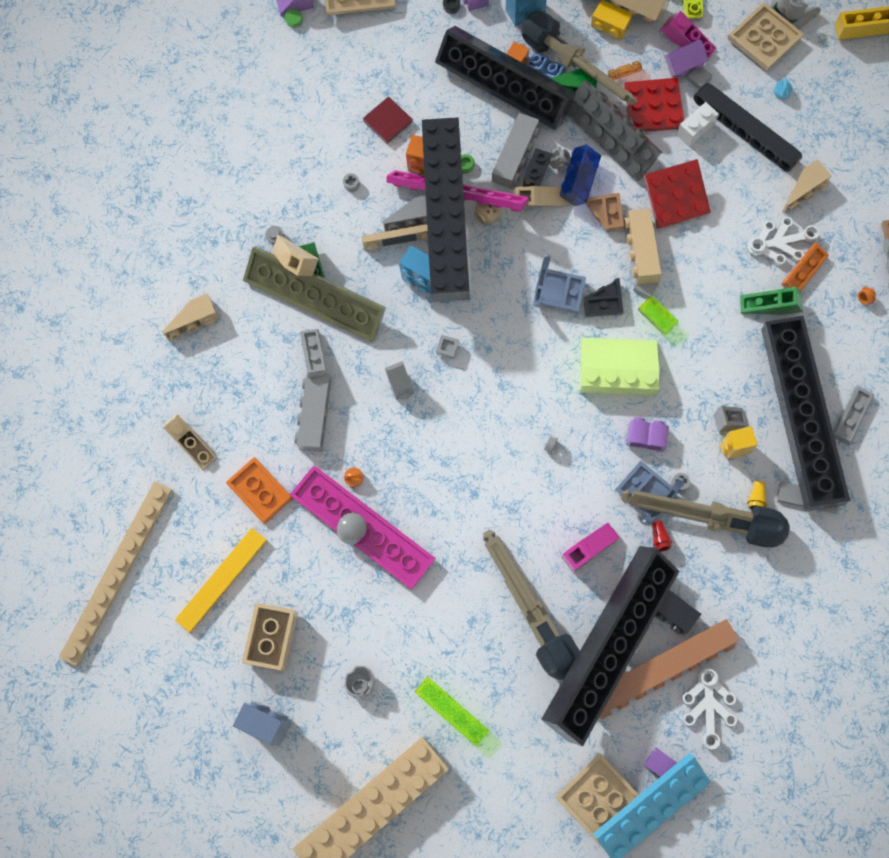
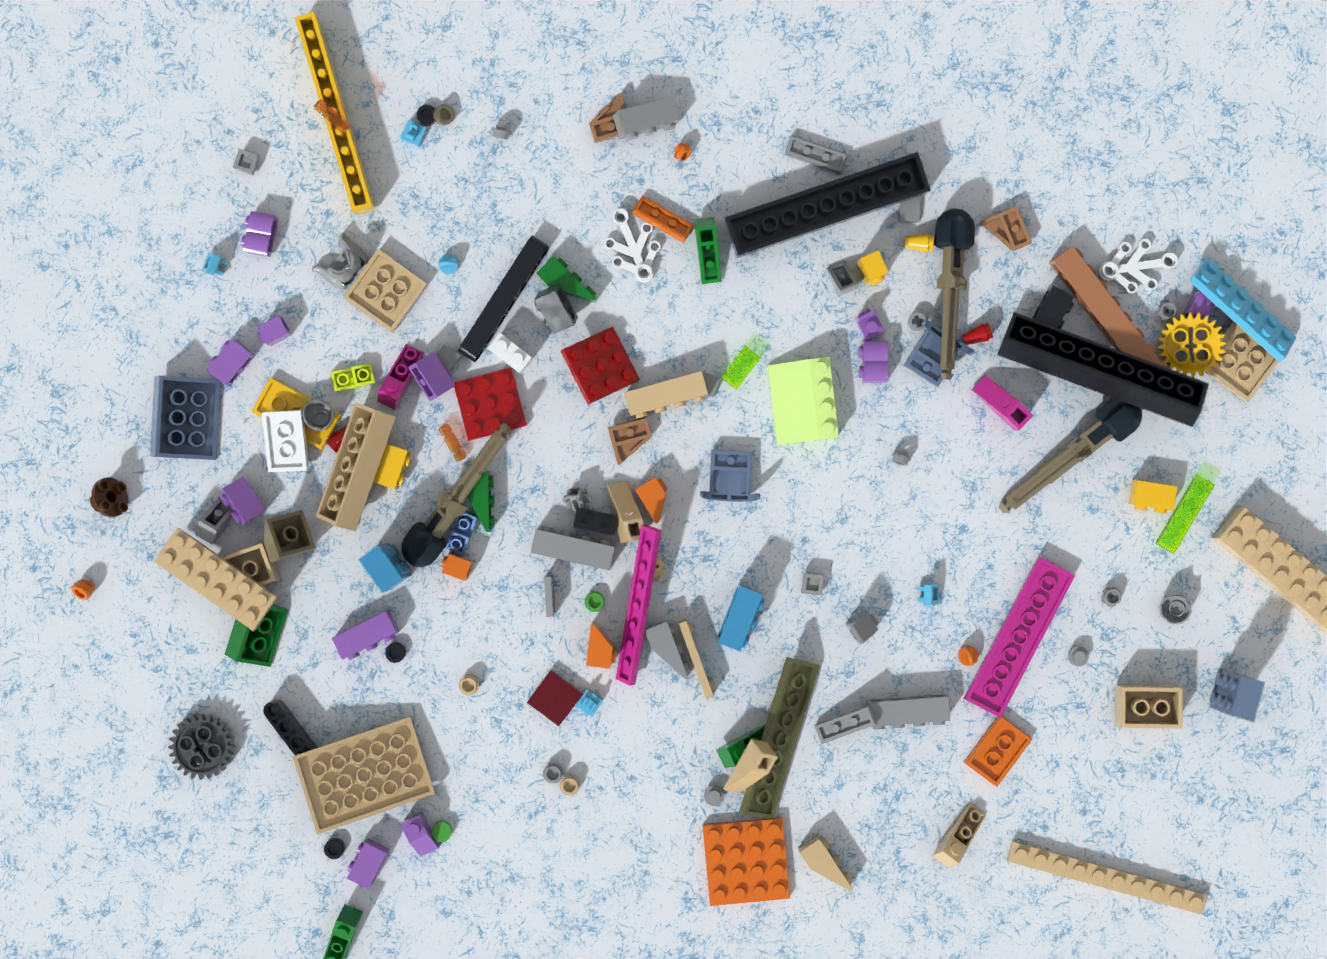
camera: 105 degrees left, 15 degrees up
(210, 253) = (746, 861): none -> orange plate
(220, 580) = (1096, 769): yellow tile -> none
(310, 120) = (569, 785): none -> tan plate
(323, 108) = (553, 773): none -> light grey plate
(332, 580) = (1078, 656): none -> light grey plate
(351, 188) = (640, 718): light grey bush -> none
(351, 528) = (1026, 646): light grey hair -> none
(378, 146) = (589, 702): none -> medium azure tile
(383, 618) = (1116, 596): none -> light grey plate
(412, 54) = (469, 685): none -> tan plate
(418, 450) = (931, 594): none -> medium azure tile
(445, 210) = (674, 612): black brick -> none
(475, 680) = (1152, 495): none -> yellow brick
(477, 126) = (549, 595): none -> light grey tile
(505, 77) = (490, 576): black brick -> none
(549, 222) = (653, 497): none -> orange slope
(580, 175) = (594, 473): clear blue brick -> none
(604, 301) = (733, 426): black wing -> none
(613, 130) = (534, 446): dark grey plate -> none
(621, 763) = (1211, 344): none -> yellow gear
(659, 725) = (1170, 307): none -> light grey plate
(684, 437) = (869, 324): none -> medium lavender bracket
(734, 163) = (555, 308): none -> brick
(762, 172) = (555, 272): none -> green slope
(762, 584) = (1008, 228): none -> medium nougat wing
(811, 179) = (559, 225): tan slope -> none

